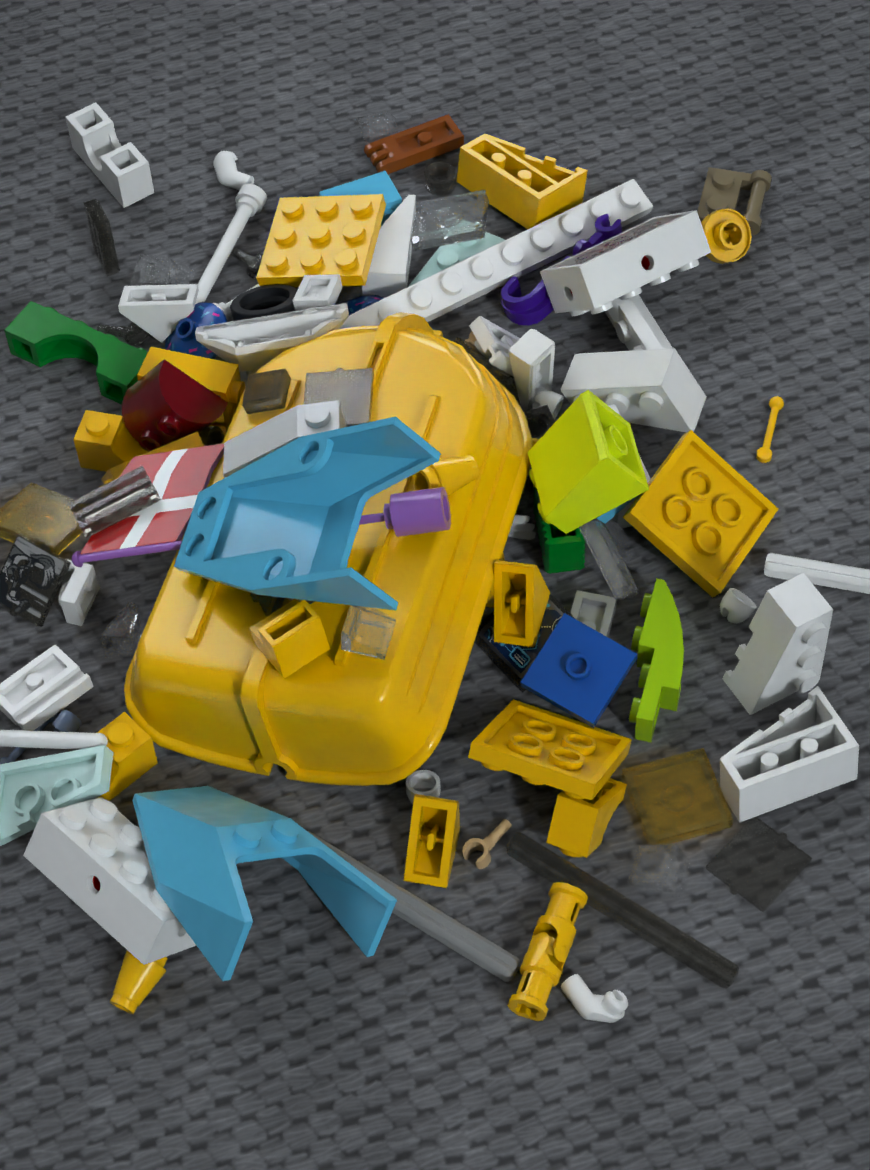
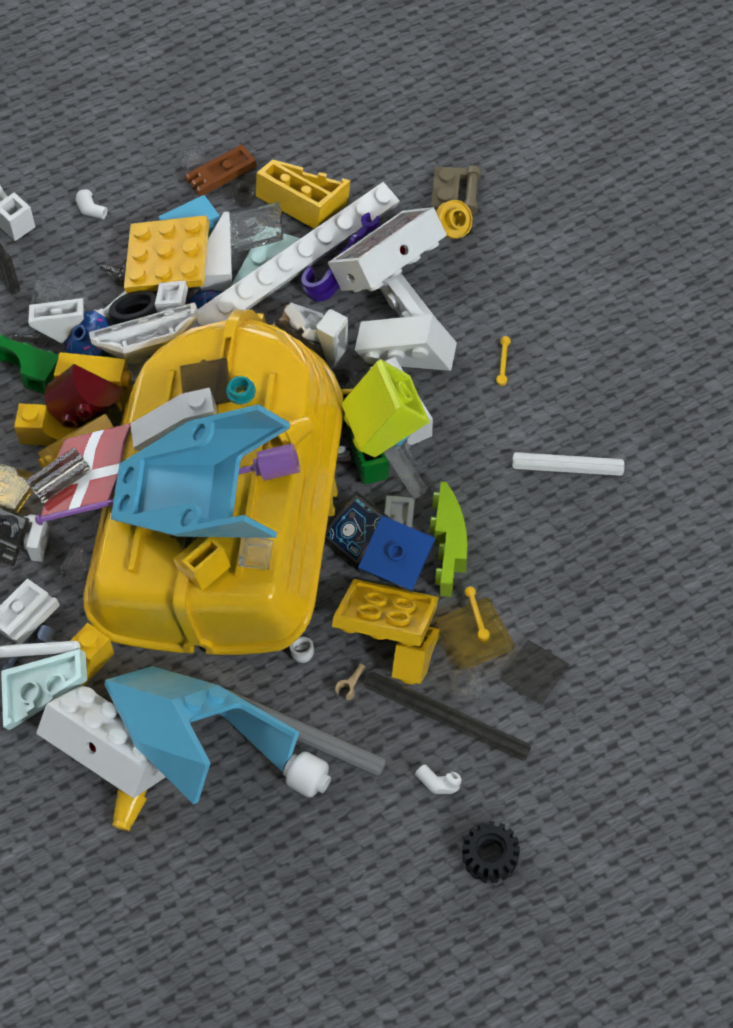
camera: 10 degrees left, 5 degrees up
(248, 203) = (107, 227): white piece -> none
(266, 391) = (153, 381): clear smoke tile -> none
(383, 406) = (238, 384): none -> teal plate
(402, 965) = (307, 774): none -> white head
(432, 840) = (314, 686): yellow slope -> none
(518, 603) = (349, 512): yellow slope -> none
(547, 951) = (403, 751): yellow piece -> none
(551, 399) = (346, 357): white hinge -> none
(665, 1090) = (495, 834): none -> black tyre
(689, 798) = (483, 634): none -> yellow hinge
(701, 513) = (465, 430): yellow plate -> none
(736, 606) = (497, 492): white hinge -> none
(784, 647) = (534, 522): white wedge -> none
(789, 760) = (547, 599): white wedge -> none

